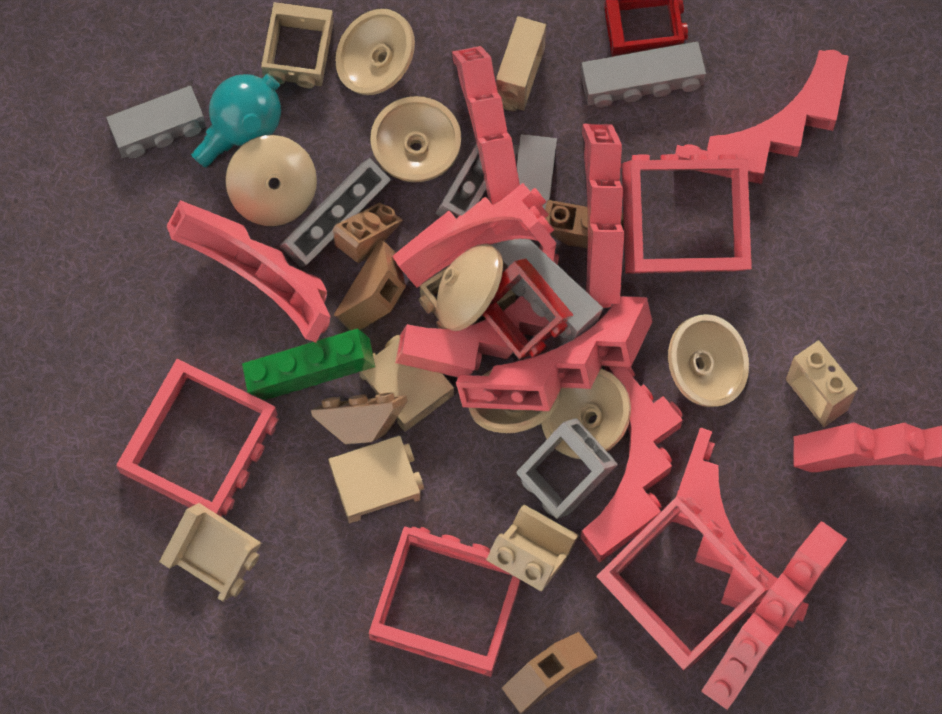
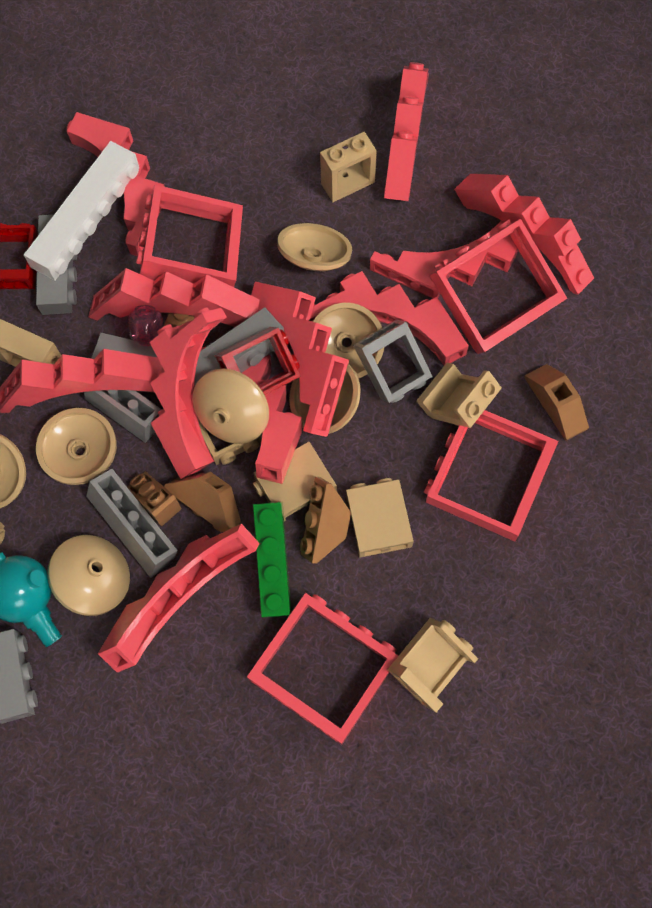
camera: 80 degrees left, 0 degrees up
(565, 182) = (144, 324): none -> clear pink head
(706, 88) = (82, 211): none -> white brick

